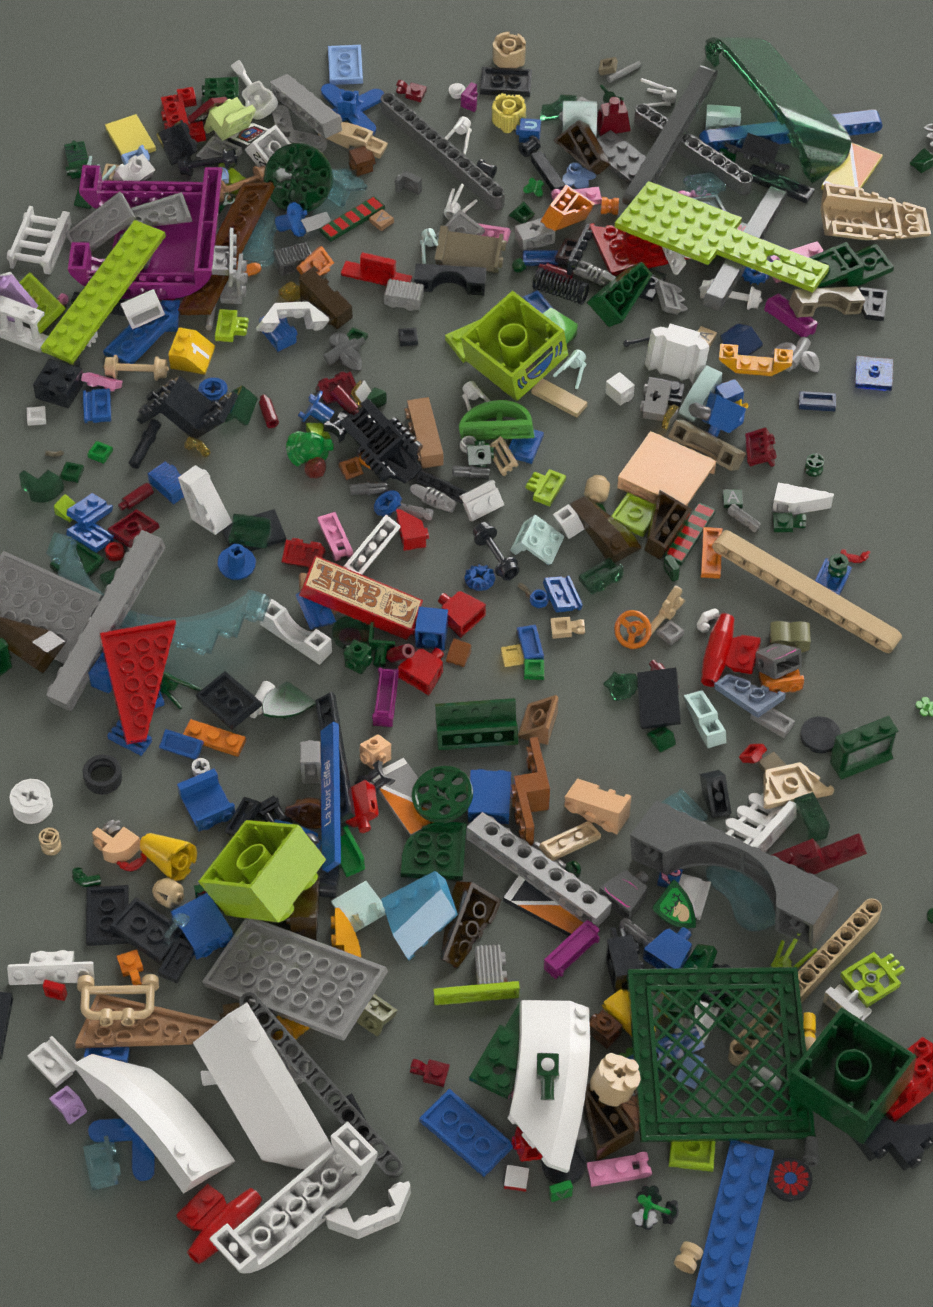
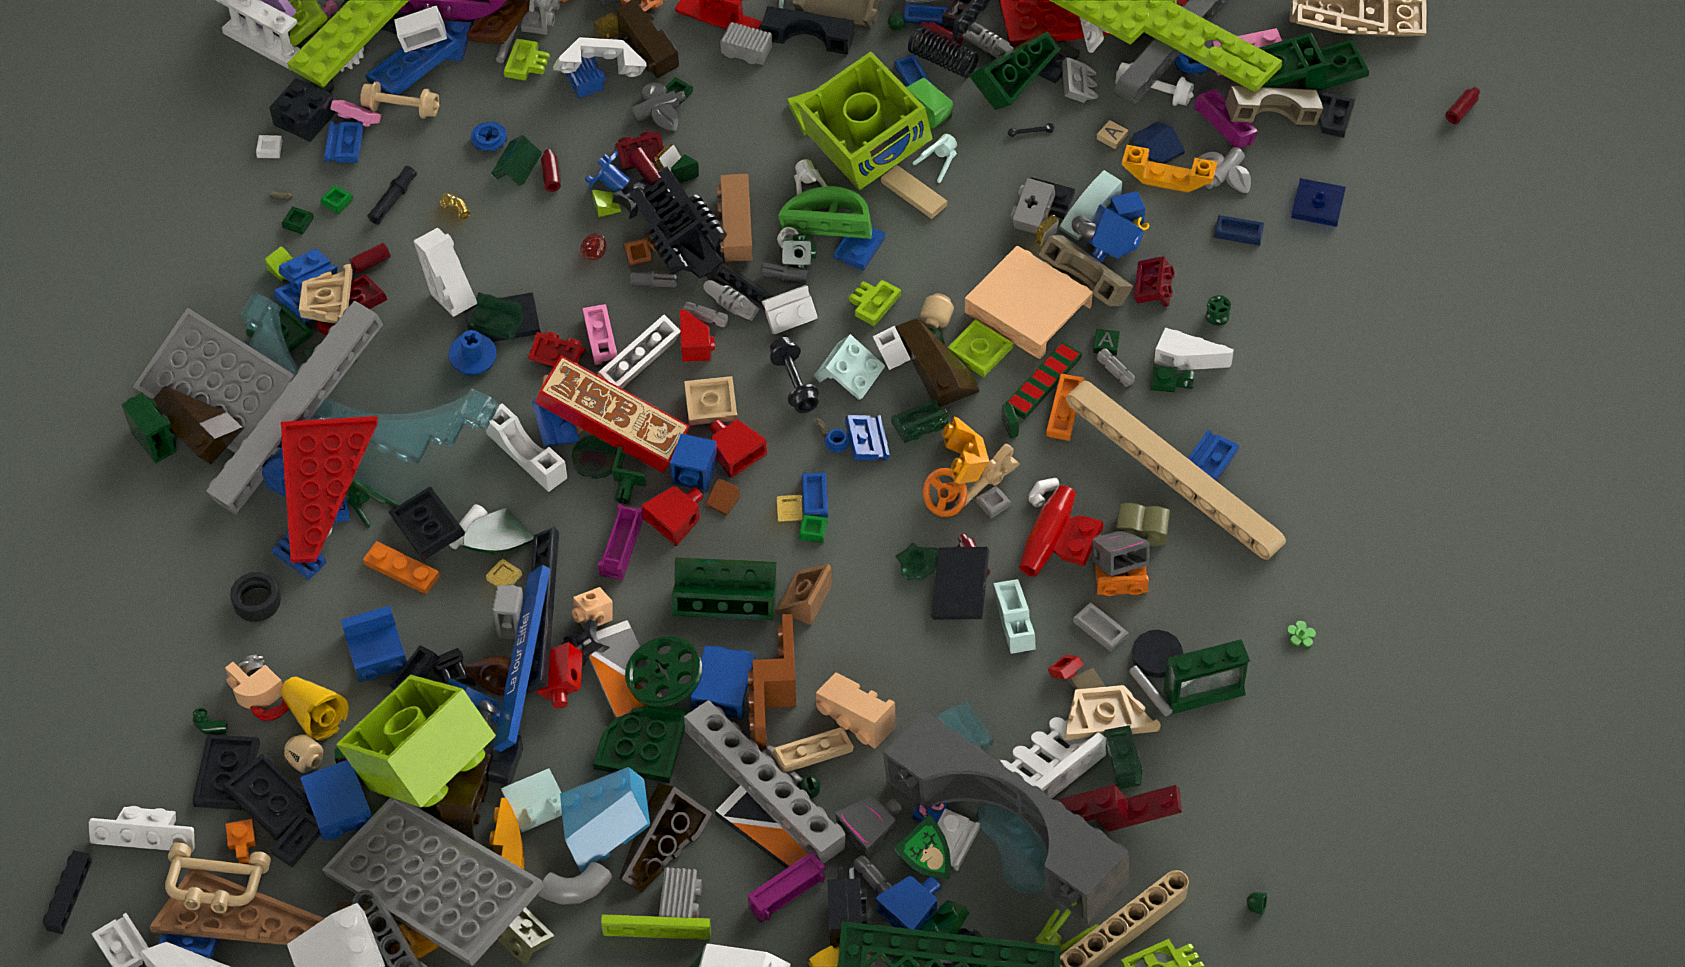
camera: 10 degrees right, 0 degrees up
(31, 801) = (162, 619): white piece -> none
(44, 488) = (259, 236): clear green brick -> none
(50, 841) = (174, 672): tan wheel -> none
(54, 990) = (141, 857): red tile -> none
(111, 530) = (326, 296): none -> tan wing
(166, 481) = (402, 239): blue brick -> none
(179, 919) = (307, 789): clear light blue hand -> none
(181, 744) = (358, 571): blue tile -> none
(186, 407) = (448, 155): black bracket -> none
(190, 352) = (470, 87): yellow slope -> none
(200, 762) = (376, 596): white bush -> none
(297, 733) = (503, 574): none -> clear yellow tile
(308, 445) = (587, 218): green helmet -> none
(351, 856) = (534, 733): green panel -> none
(358, 656) = (596, 487): dark green brick -> none
(381, 505) = (672, 300): blue gear -> none
(400, 653) = (648, 488): dark red cylinder -> none
(408, 337) = (742, 96): black tile -> none
(410, 970) = (578, 888): none -> light grey cylinder
(433, 578) = (710, 400): none -> tan plate
(477, 583) = (763, 412): blue gear -> none
(508, 466) = (825, 274): tan tile -> none
(563, 627) = (860, 479): tan plate -> none
(620, 389) = (991, 188): white brick -> none
(650, 598) = (971, 446): none -> light orange slope
(662, 738) = (955, 634): dark green slope -> none
(665, 524) = (1013, 365): dark brown wedge -> none
(677, 352) = (1070, 149): white slope -> none
(716, 793) = (1008, 712): black slope -> none
(748, 696) = (1074, 594): sand blue wing -> none
(821, 764) = (1150, 691): none -> light grey piece
(839, 570) = (1222, 447): dark green wheel -> none
(855, 558) = (1247, 434): red piece -> none

